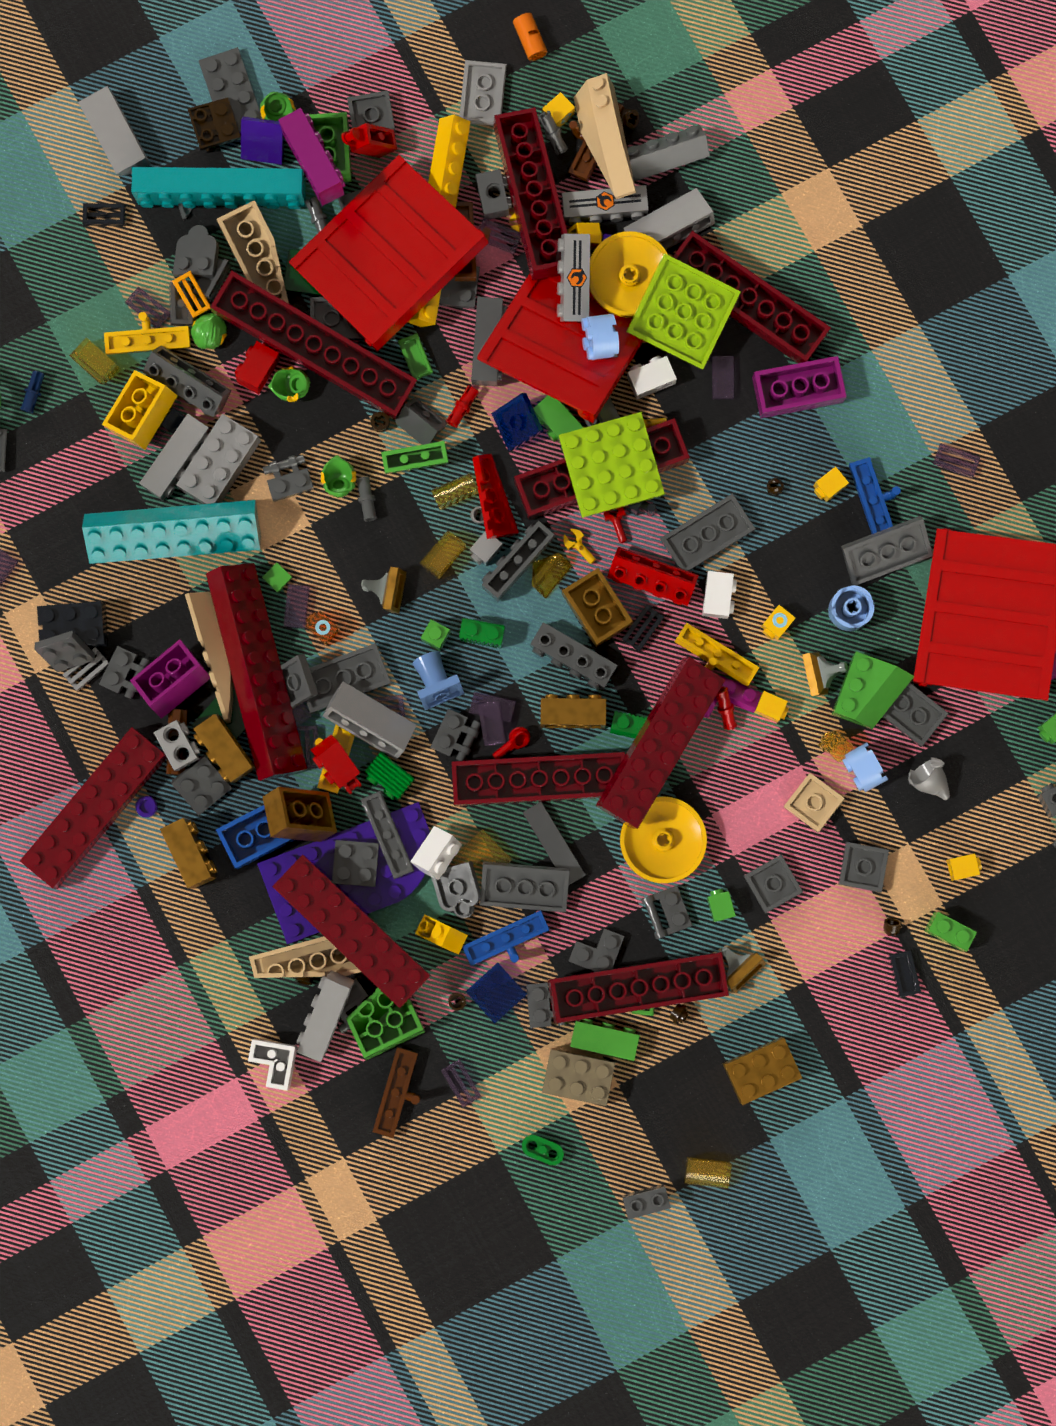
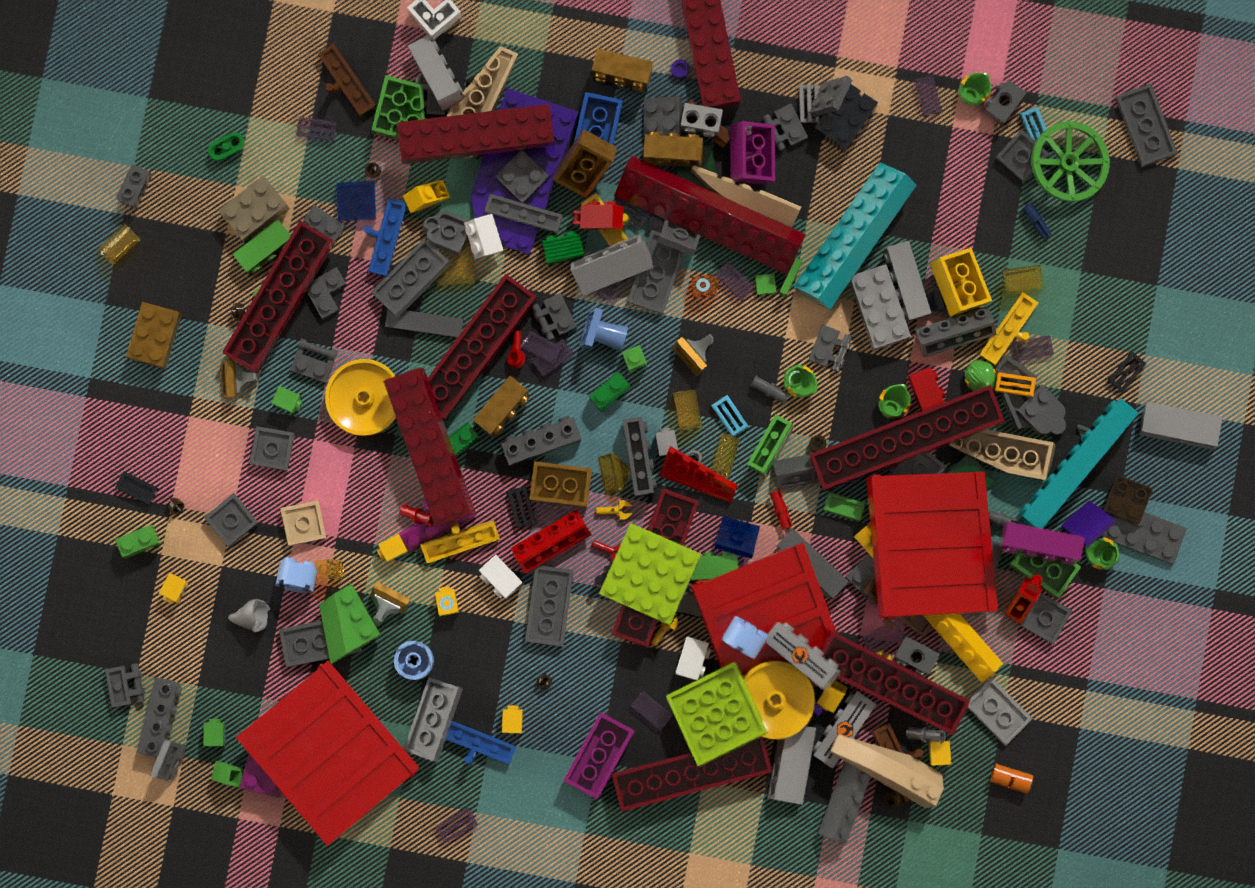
camera: 130 degrees right, 0 degrees up
(257, 558) = (790, 278): none -> bright green tile
(412, 532) = (738, 429): none -> medium azure tile

